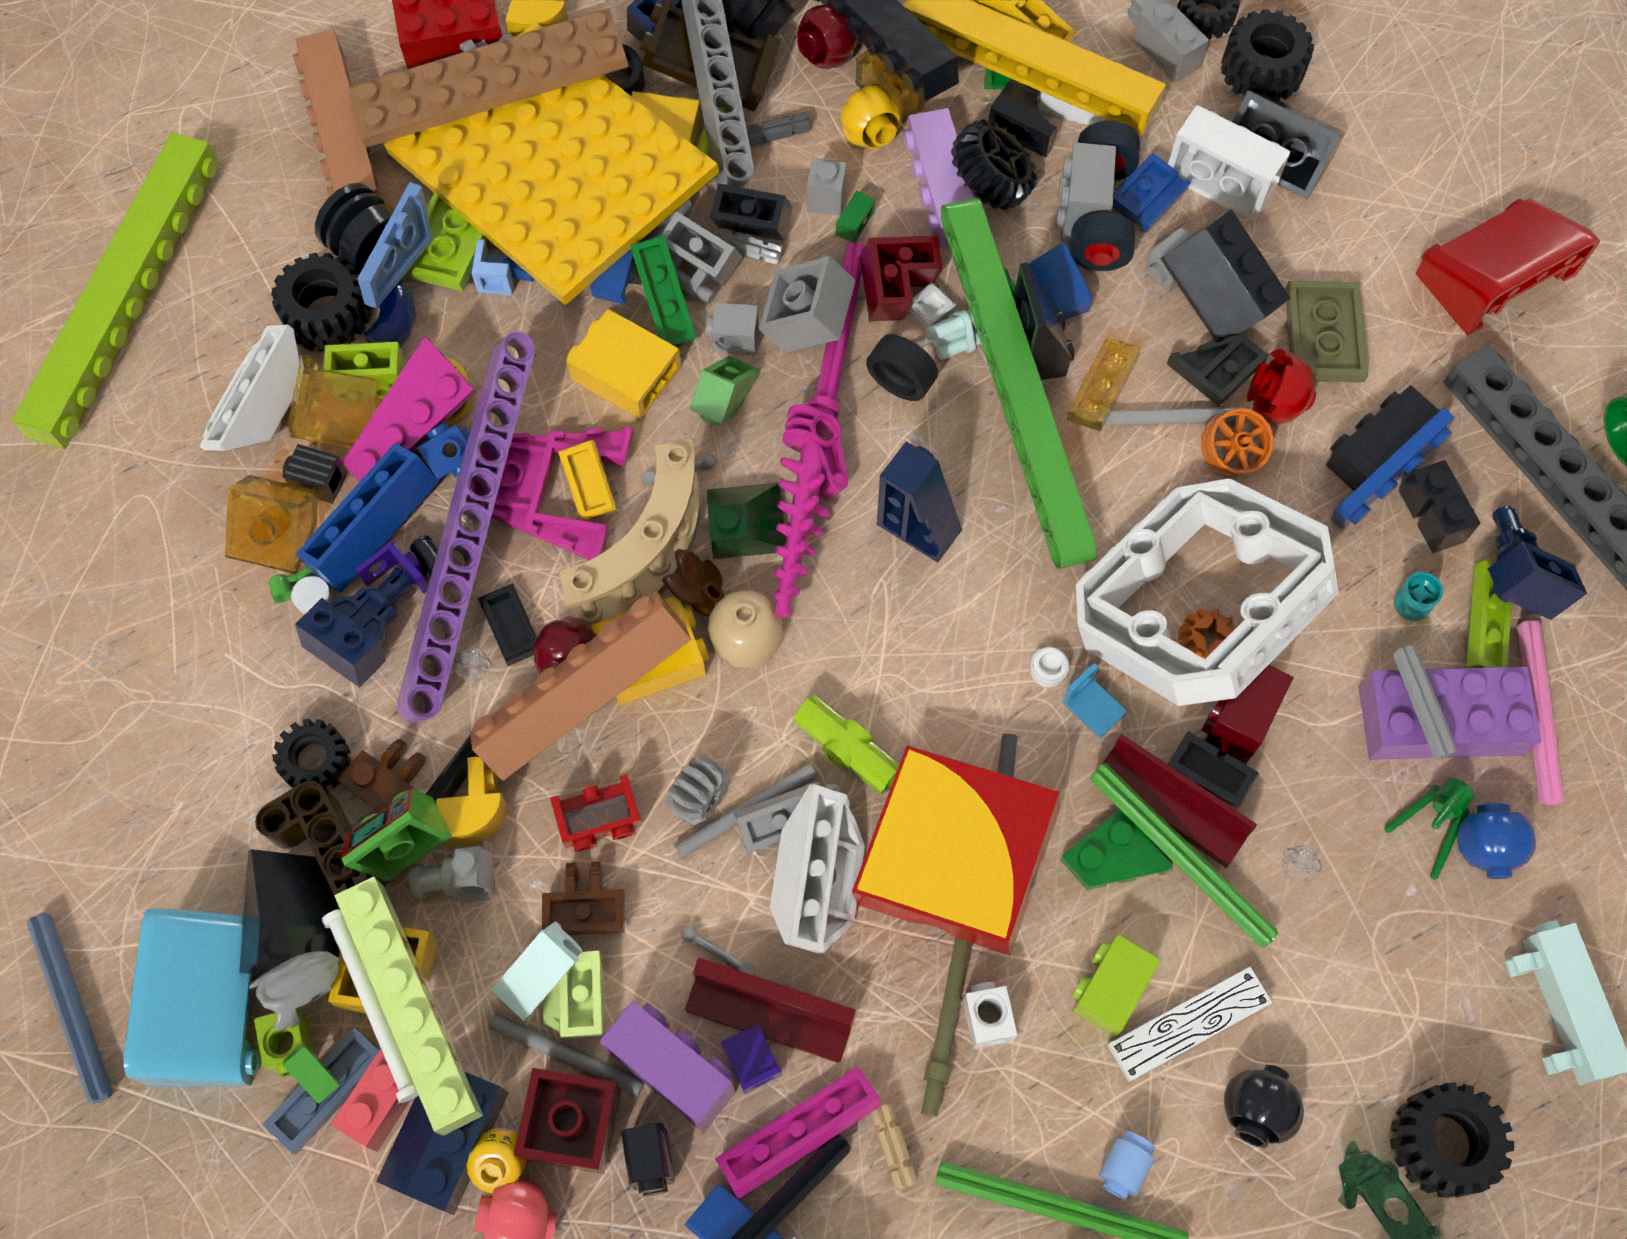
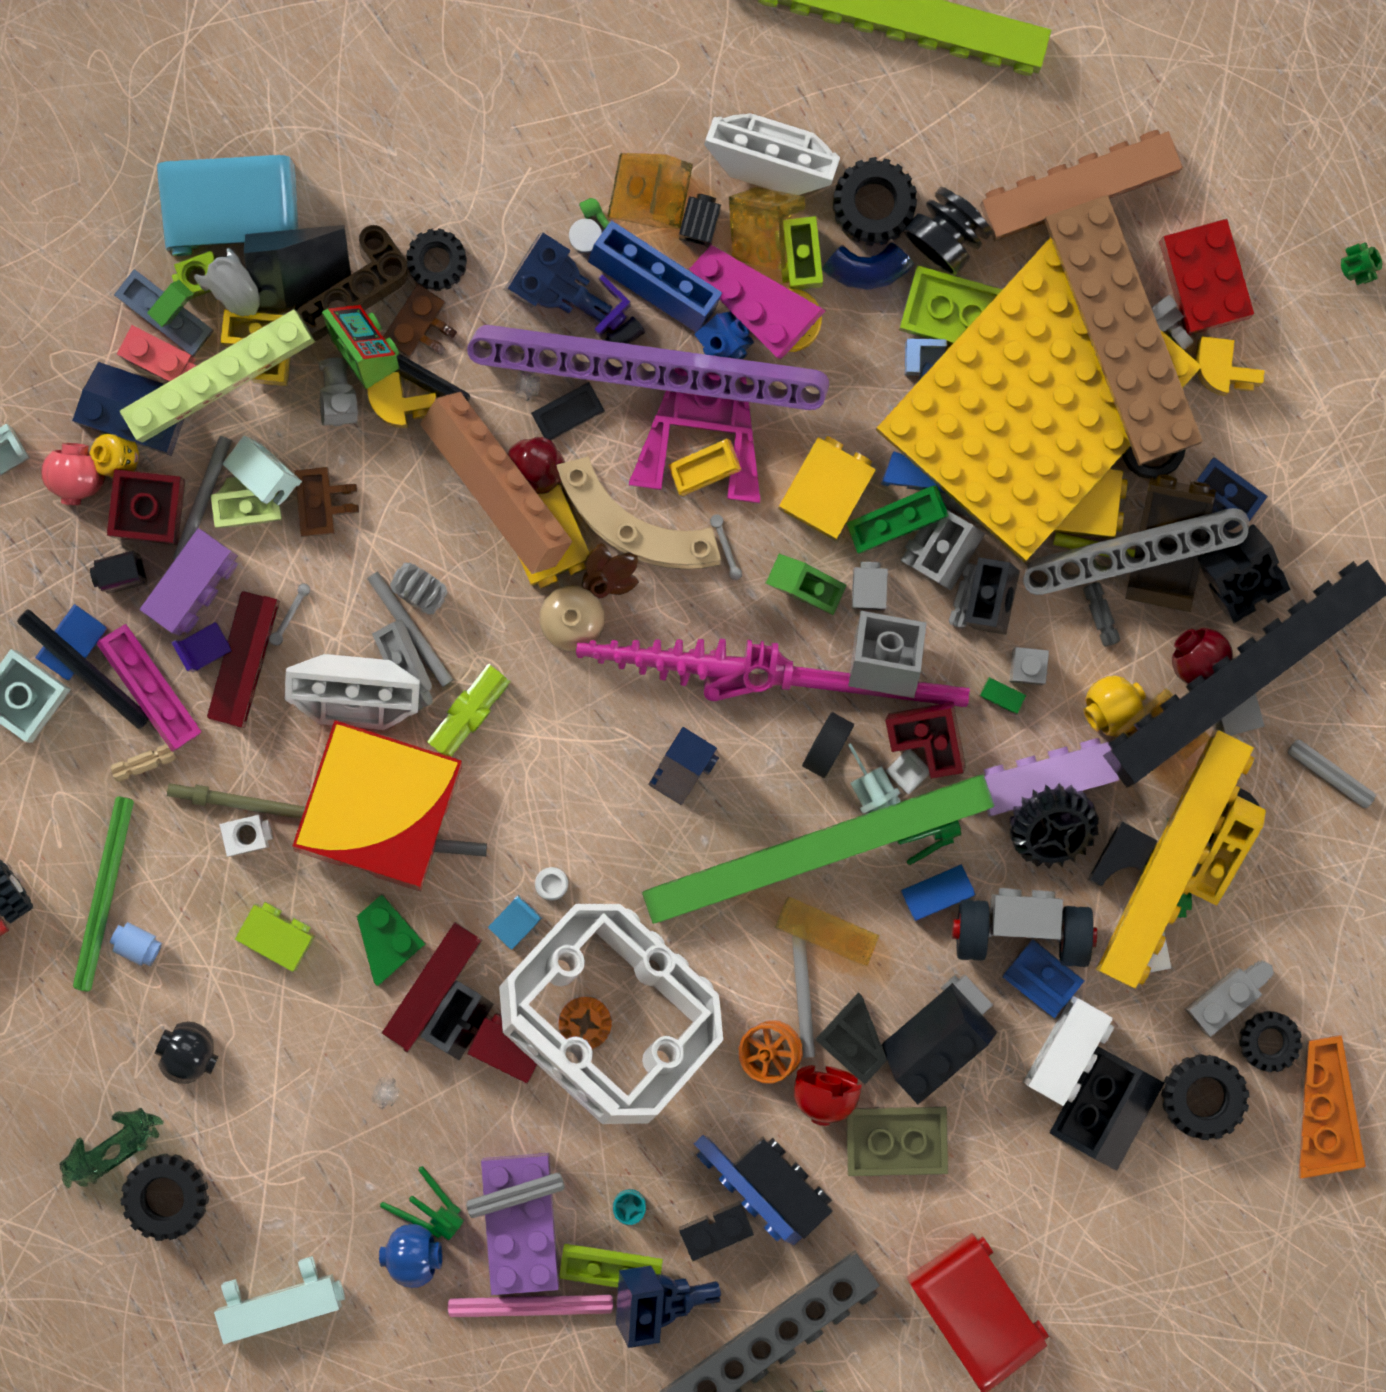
camera: 85 degrees right, 20 degrees up
(69, 1008) = (220, 97): sand blue axle -> none
(371, 1004) = (221, 344): white bar -> none
(397, 248) = (916, 268): medium blue wing -> none
(597, 815) = (397, 505): red window -> none
(745, 520) = (679, 610): dark green slope -> none
(1042, 325) = (873, 872): black slope -> none
(1184, 855) = (386, 993): bright green axle -> none
(1189, 1024) = (249, 997): white tile -> none

